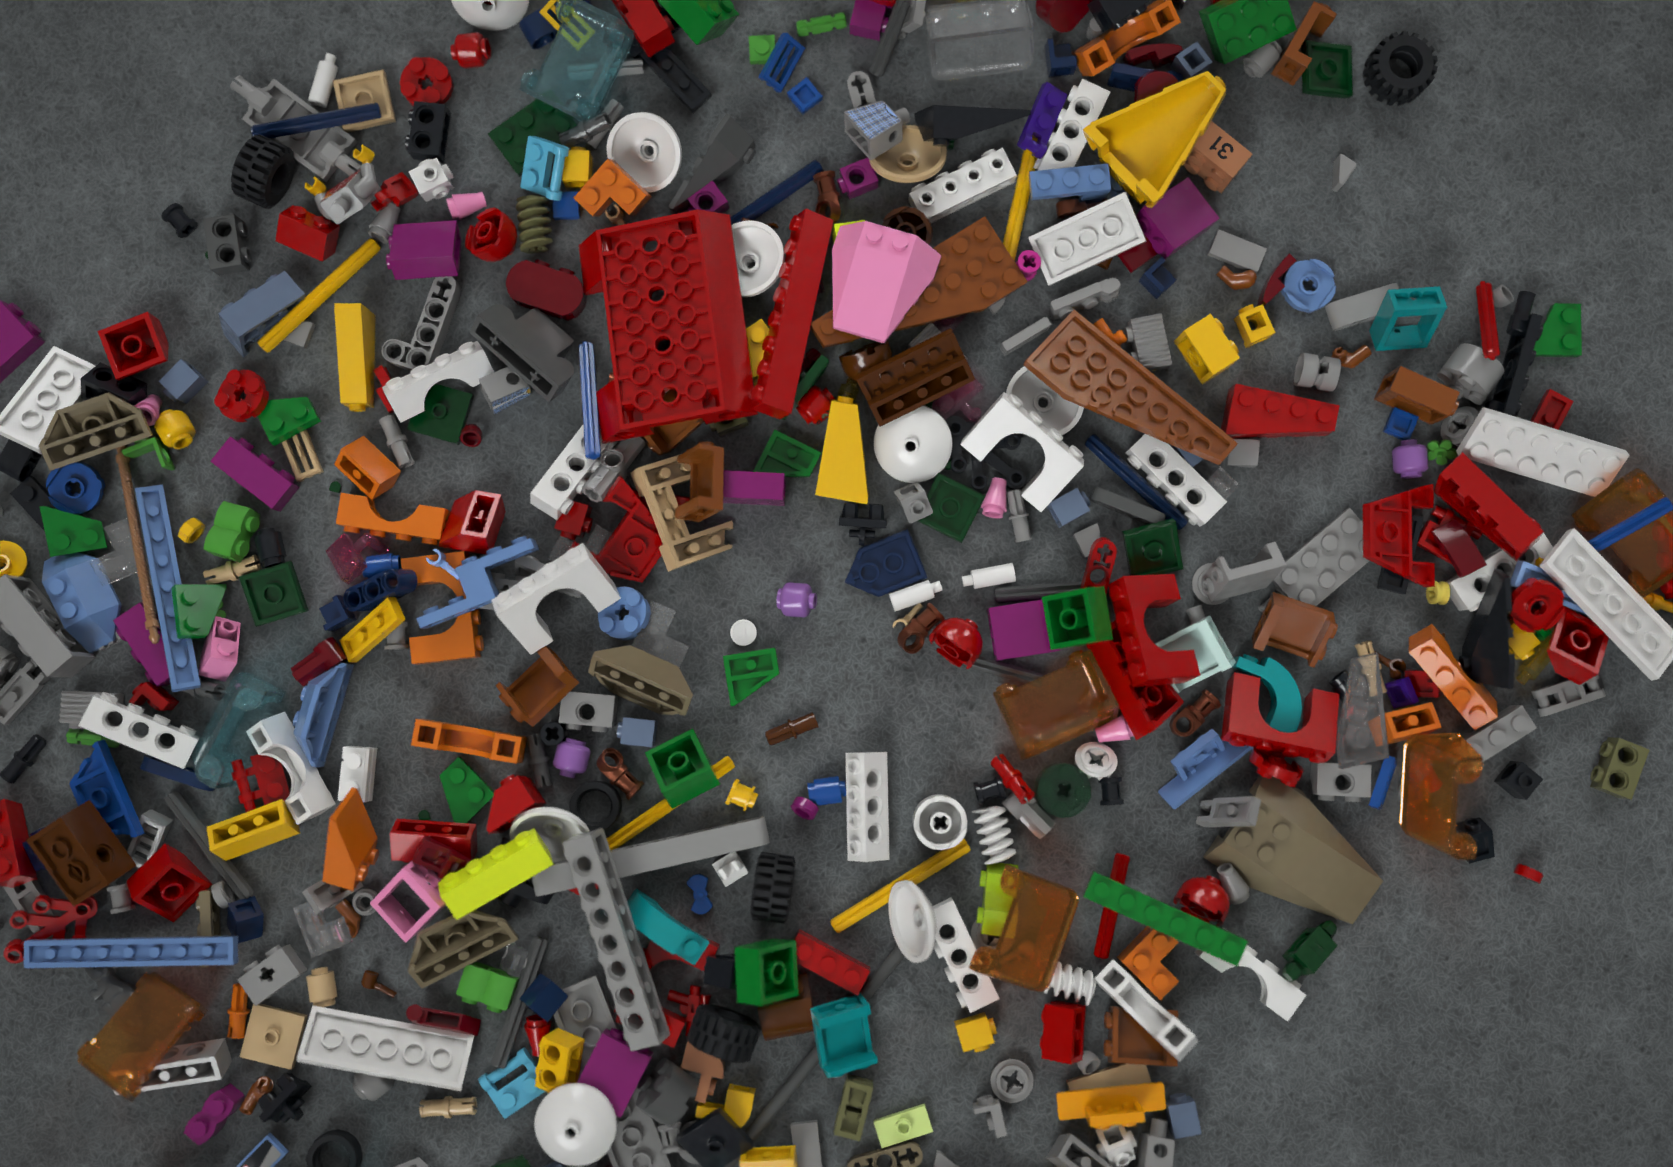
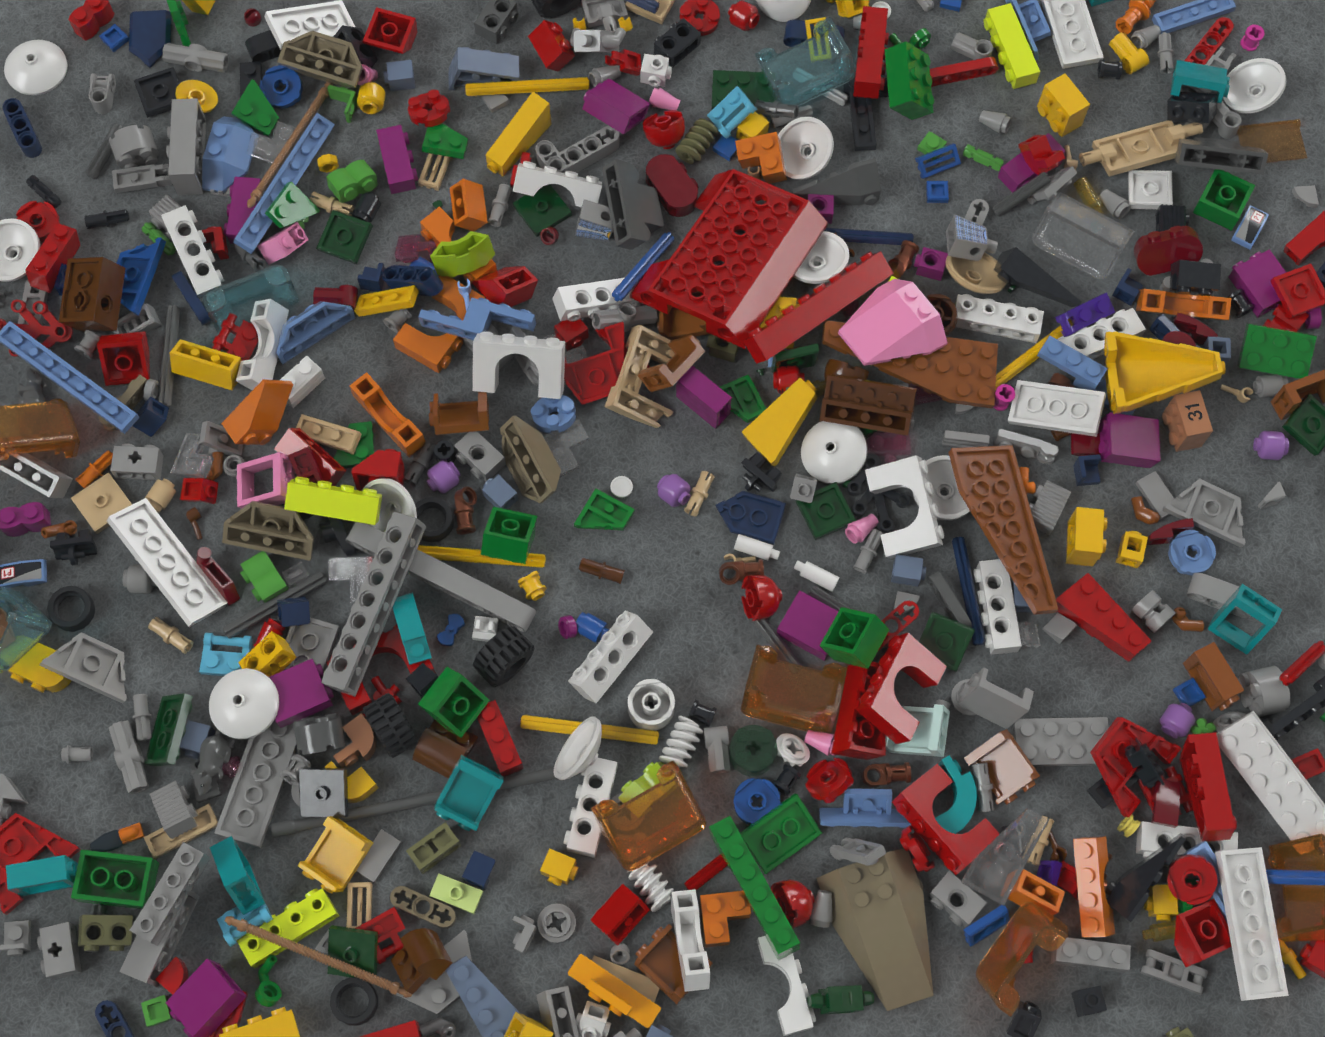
camera: 35 degrees right, 15 degrees down
(355, 954) = (199, 490): none -> red bracket
(409, 529) = (462, 255): none -> lime brick
(429, 802) = (330, 434): none -> tan tile
(563, 913) = (350, 569): none -> clear plate
(821, 583) = (699, 493): none -> tan pin
(908, 1093) = (479, 870): none -> dark blue panel
(1012, 779) = (724, 715): red pin -> none
(1108, 844) = (758, 788): none -> blue plate
(1143, 845) = (780, 833): none -> green tile
(1163, 767) = (839, 775): none -> red plate
(1239, 88) = (1239, 393): none -> tan hand
(1288, 659) = (983, 787): none -> light grey pin
(1295, 229) = (1211, 511): none -> light grey wing
(1305, 120) = (1271, 445): none -> medium lavender head
(1412, 527) = (1139, 756): none -> black hinge

